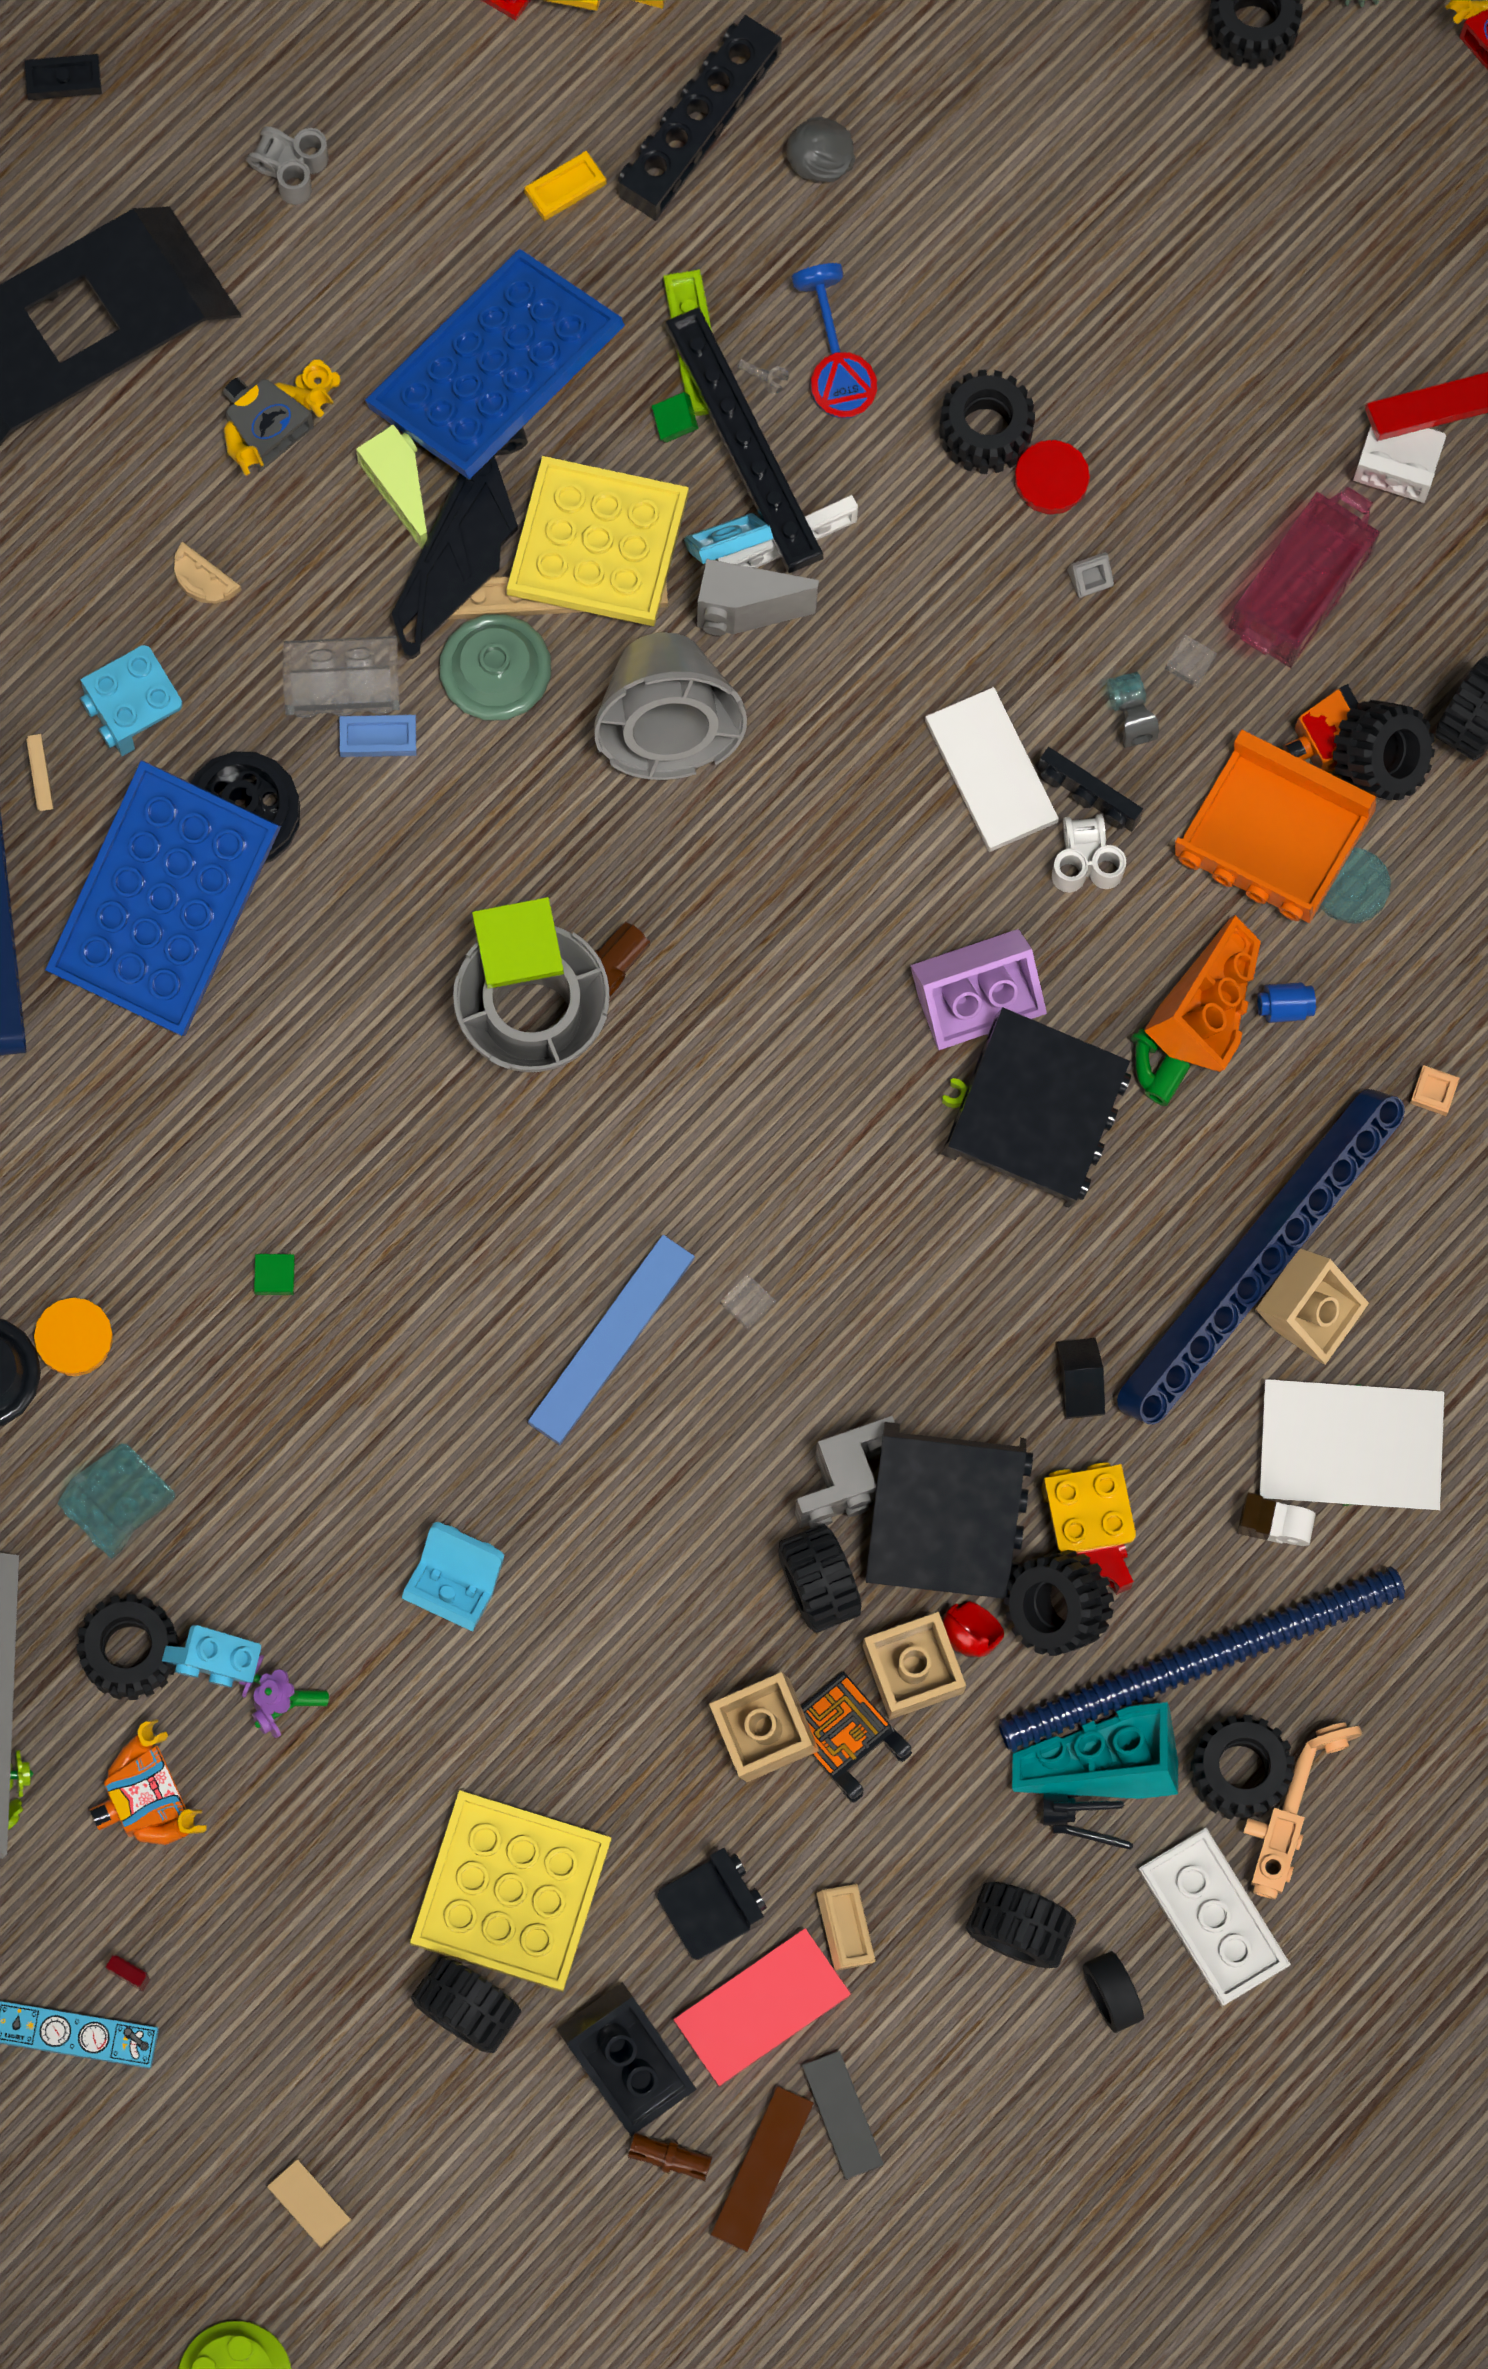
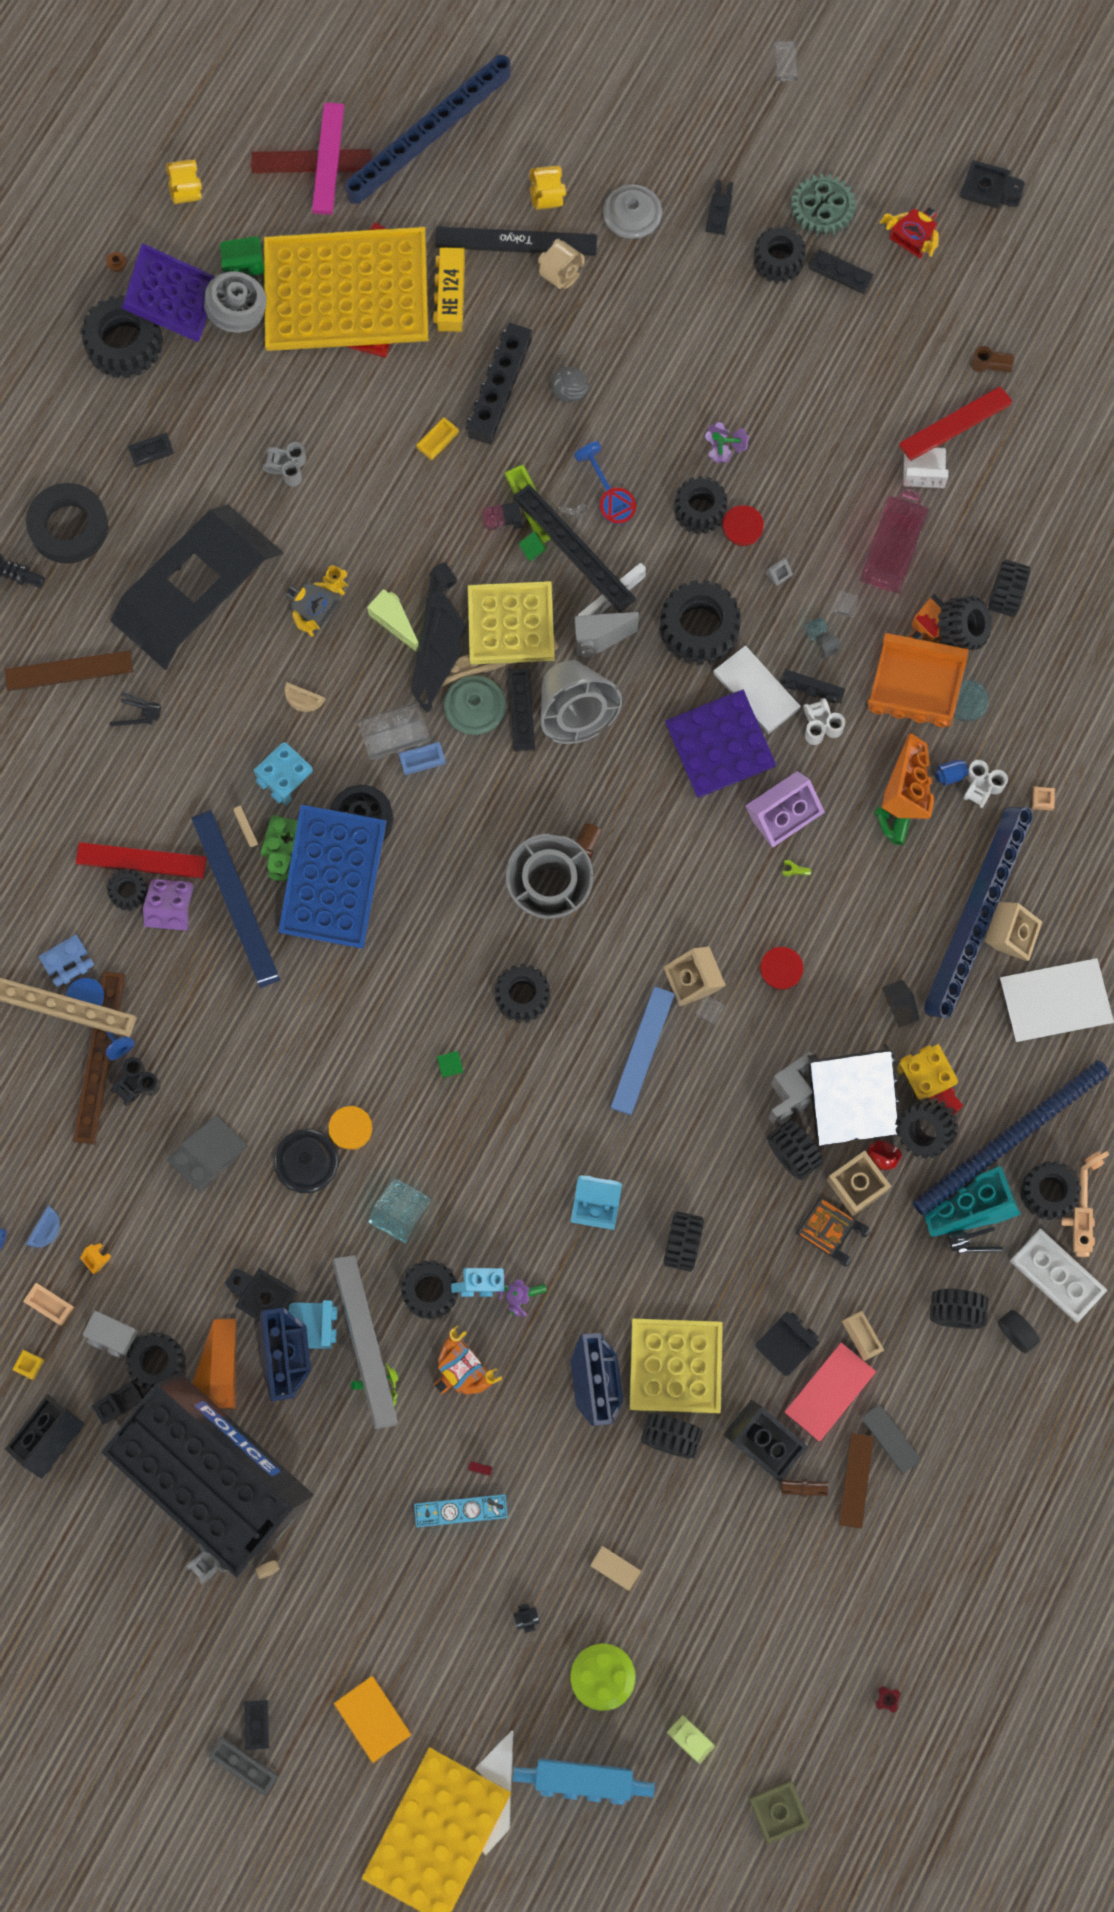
camera: 10 degrees left, 0 degrees up
(81, 822) = (275, 848): none -> bright green plate
(133, 2244) = (526, 1618): none -> black gear
(368, 1876) = (596, 1379): none -> dark blue wedge
(424, 1155) = (528, 976): none -> black tyre
(494, 363) = (428, 542): blue plate -> none
(518, 943) = (534, 849): lime tile -> none
(574, 696) = (521, 709): none -> black tile
(582, 1682) = (683, 1241): none -> black tyre
(639, 350) = (502, 515): none -> leg
(728, 538) = (581, 602): medium azure tile -> none
(737, 1234) = (694, 975): none -> tan slope
(764, 1727) = (788, 1239): tan brick -> none
(892, 1262) = (781, 968): none -> red tile
(900, 846) = (720, 743): none -> dark purple plate
(934, 581) = (700, 597): none -> black tyre
(1038, 1106) = (836, 862): black panel -> none
(1053, 309) = (717, 436): none -> medium lavender plant
(1275, 1521) = (1028, 1052): leg -> none
(1332, 1040) = (982, 785): none -> white piece
(1356, 74) = (841, 271): none -> black plate

